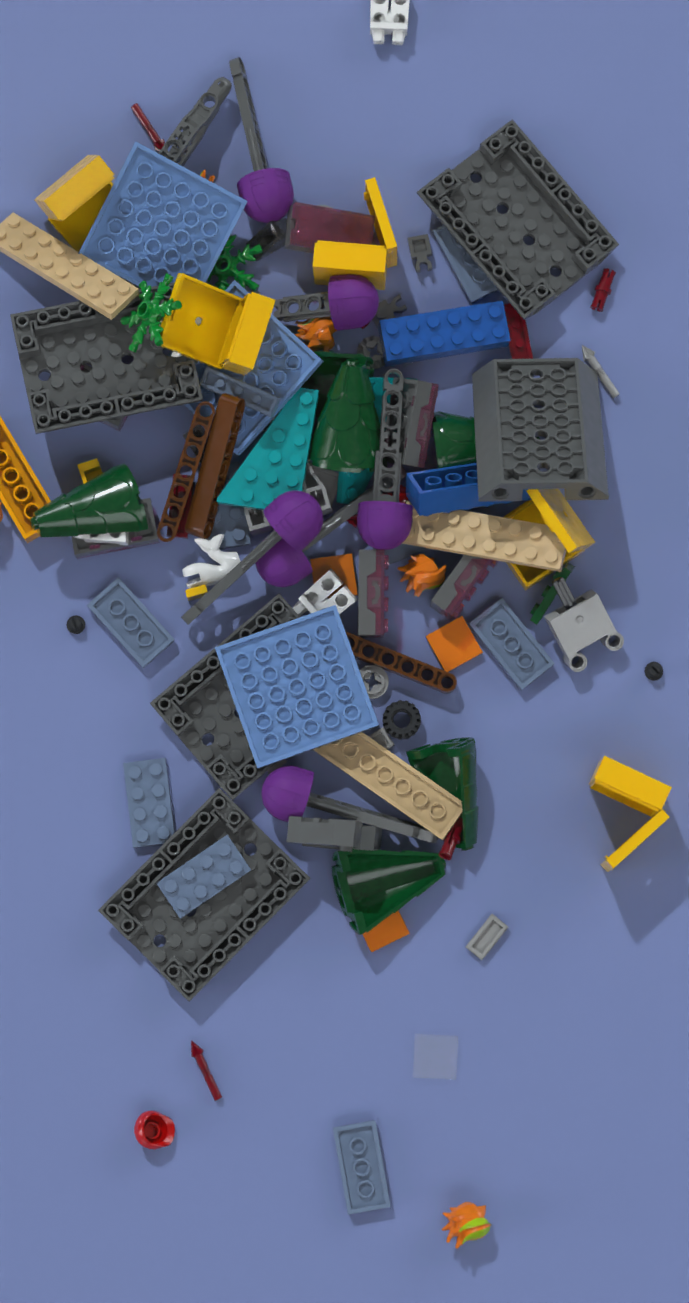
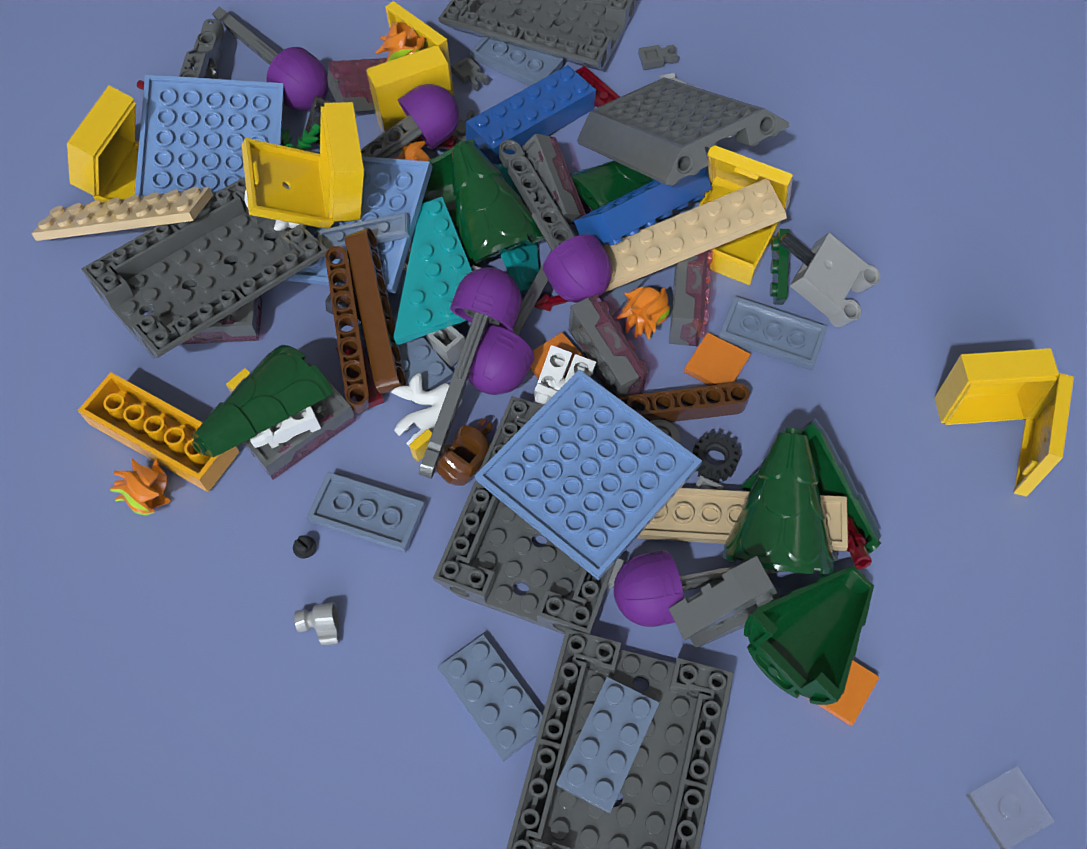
camera: 30 degrees left, 20 degrees down
(63, 686) = (323, 618): none -> light grey piece
(150, 313) = (232, 193): green piece -> none
(226, 618) = (465, 455): none -> reddish brown piece
(361, 221) = (400, 41): none -> orange hair
(407, 798) = (784, 513): none -> dark green cone
(486, 936) = (961, 633): light grey tile -> none
(589, 322) = (655, 57): none -> dark grey plate
(603, 289) = (647, 30): dark red pin -> none
(653, 671) = (921, 289): black piece -> none

